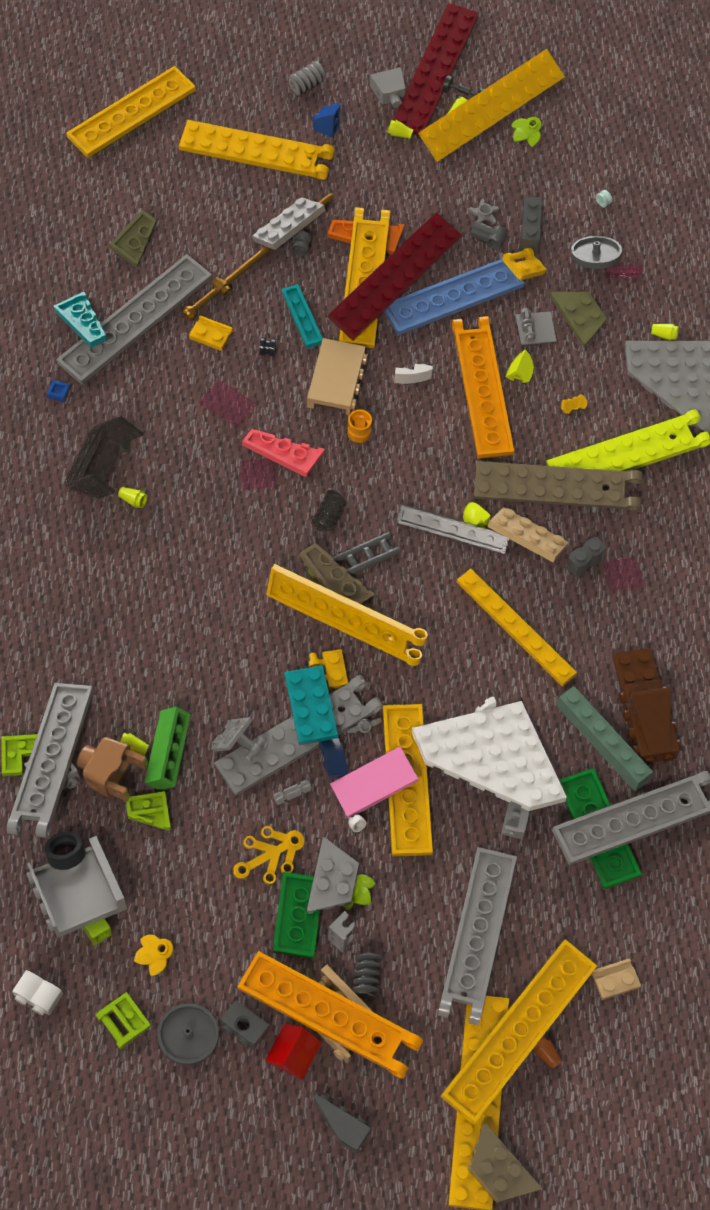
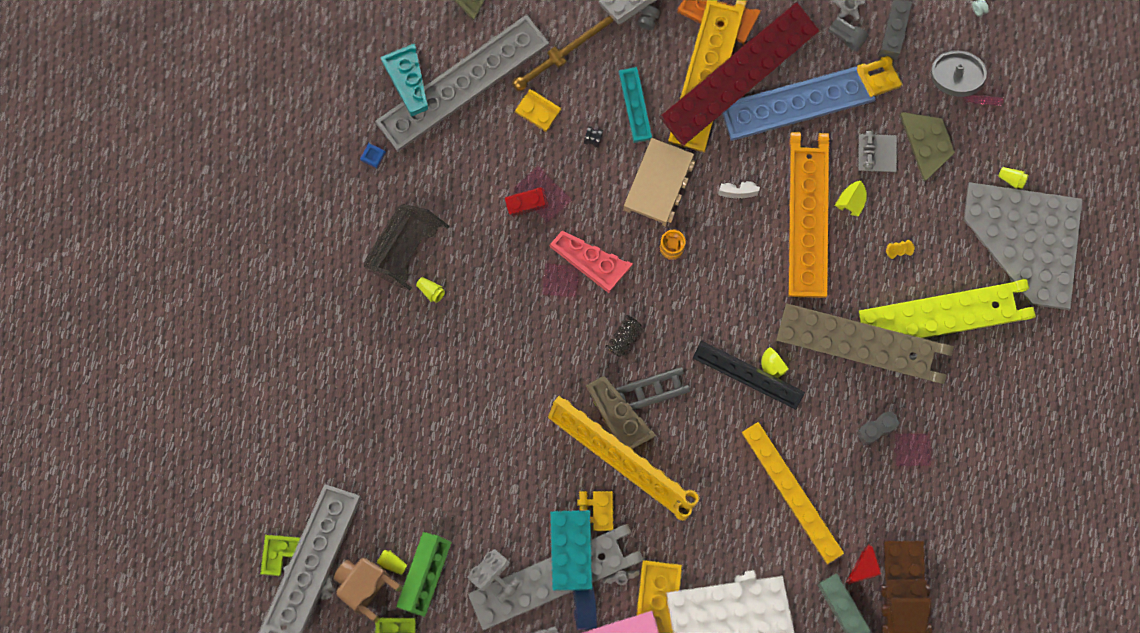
camera: 15 degrees right, 15 degrees up
(214, 408) = (526, 202): none -> red brick
(528, 534) = (823, 394): tan plate -> none
(601, 679) = (865, 567): none -> red slope

